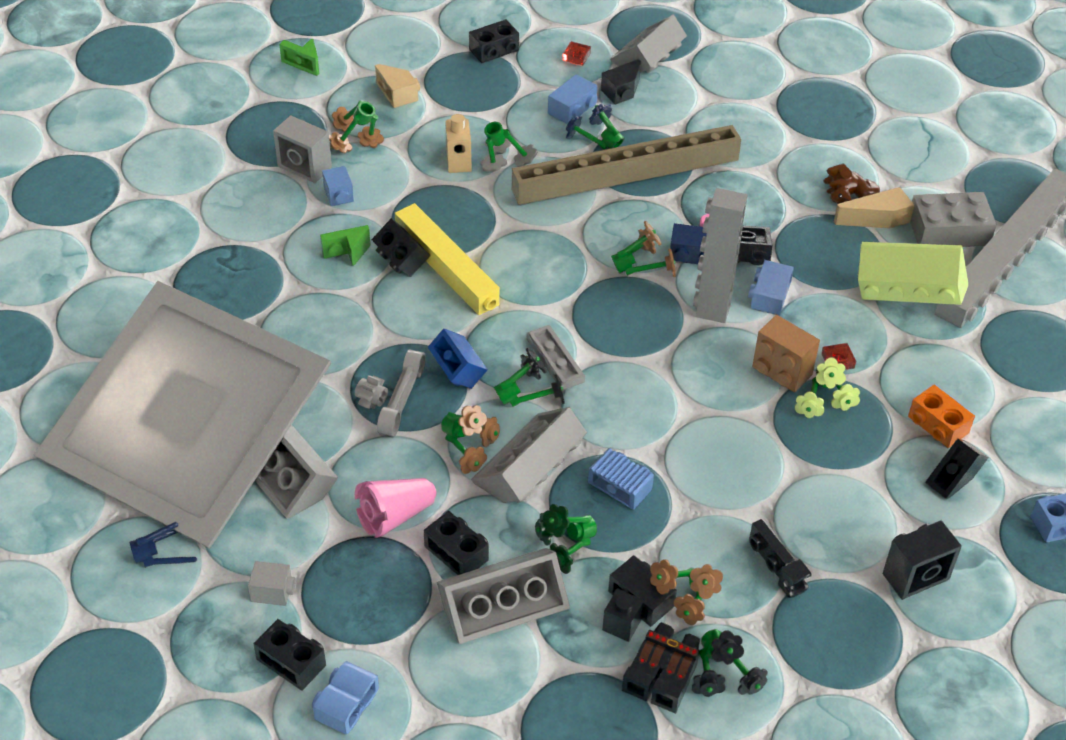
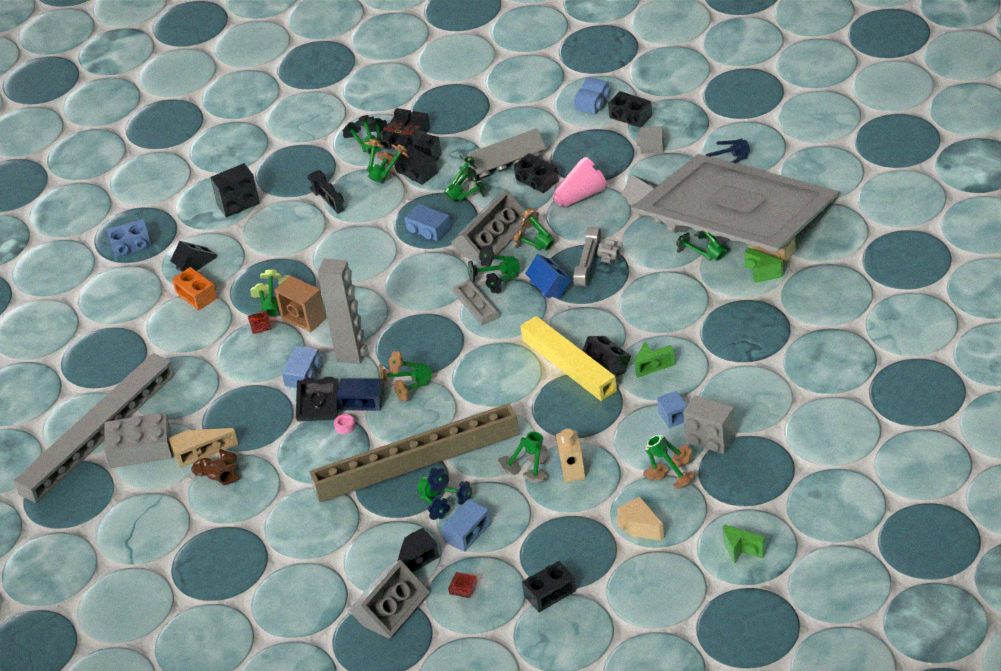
camera: 175 degrees left, 5 degrees down
(912, 272) = (188, 365): yellowish green slope -> none

